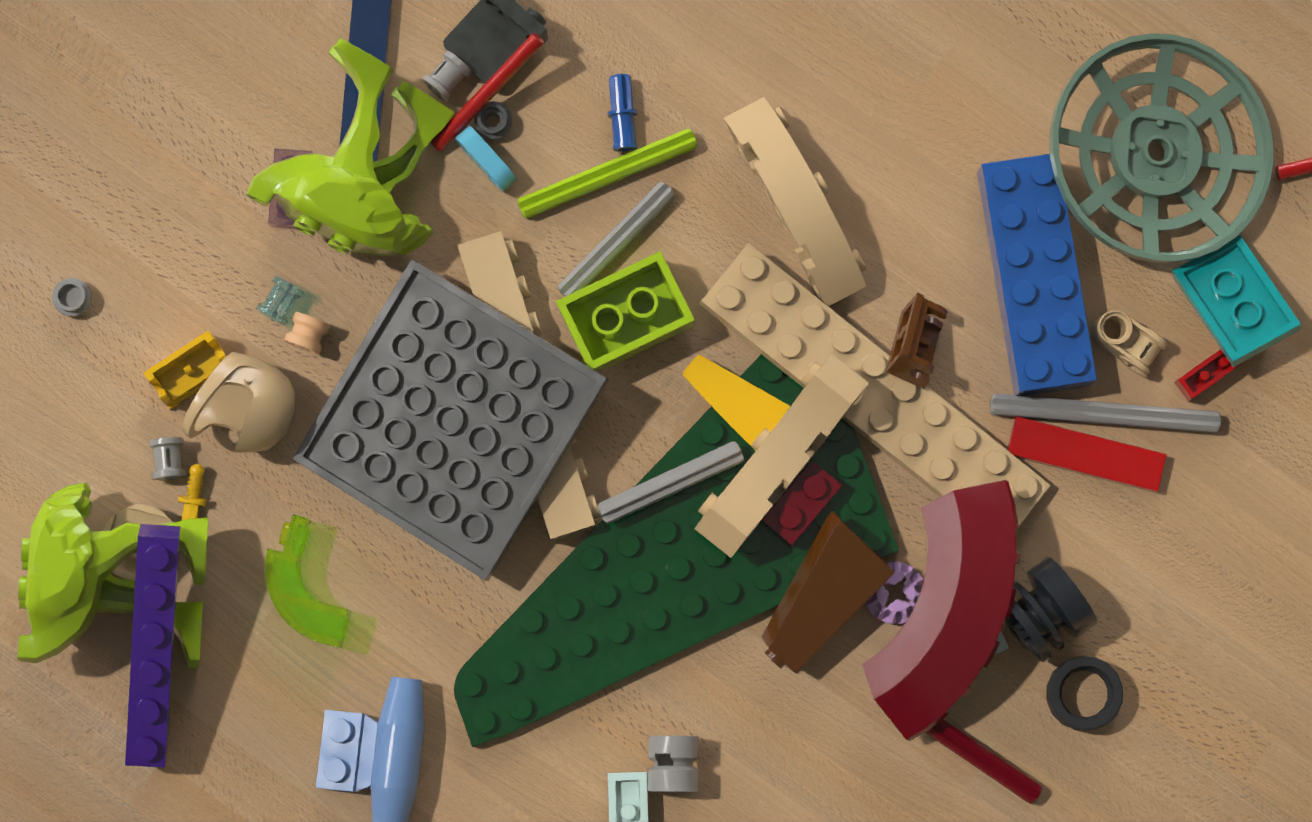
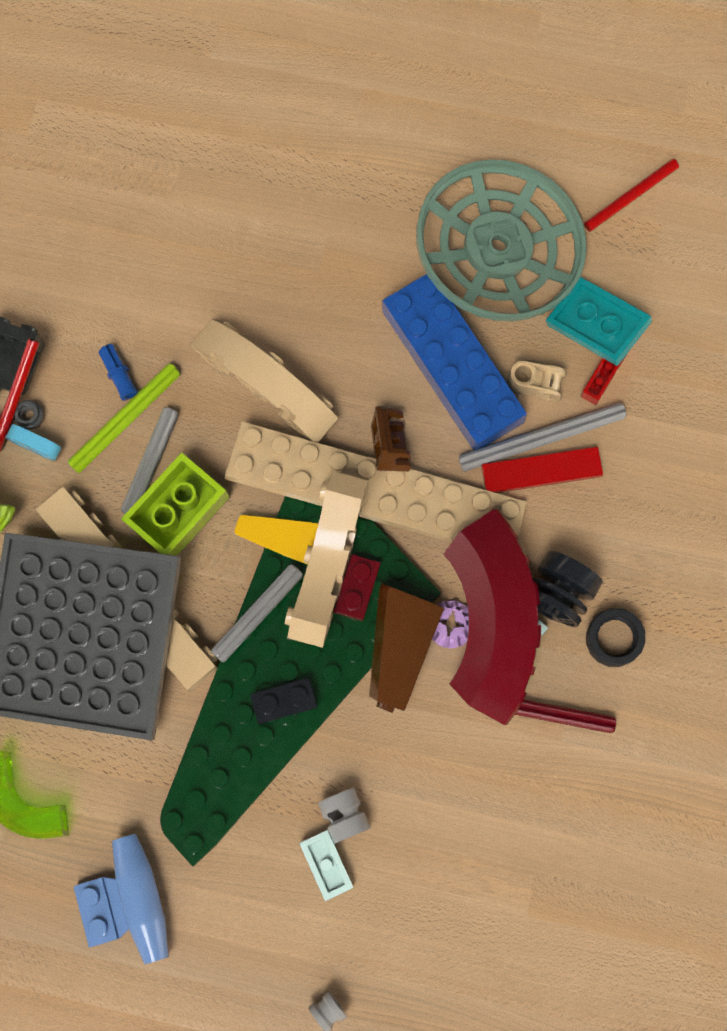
camera: 20 degrees left, 5 degrees down
(658, 600) = (283, 701): none -> black plate

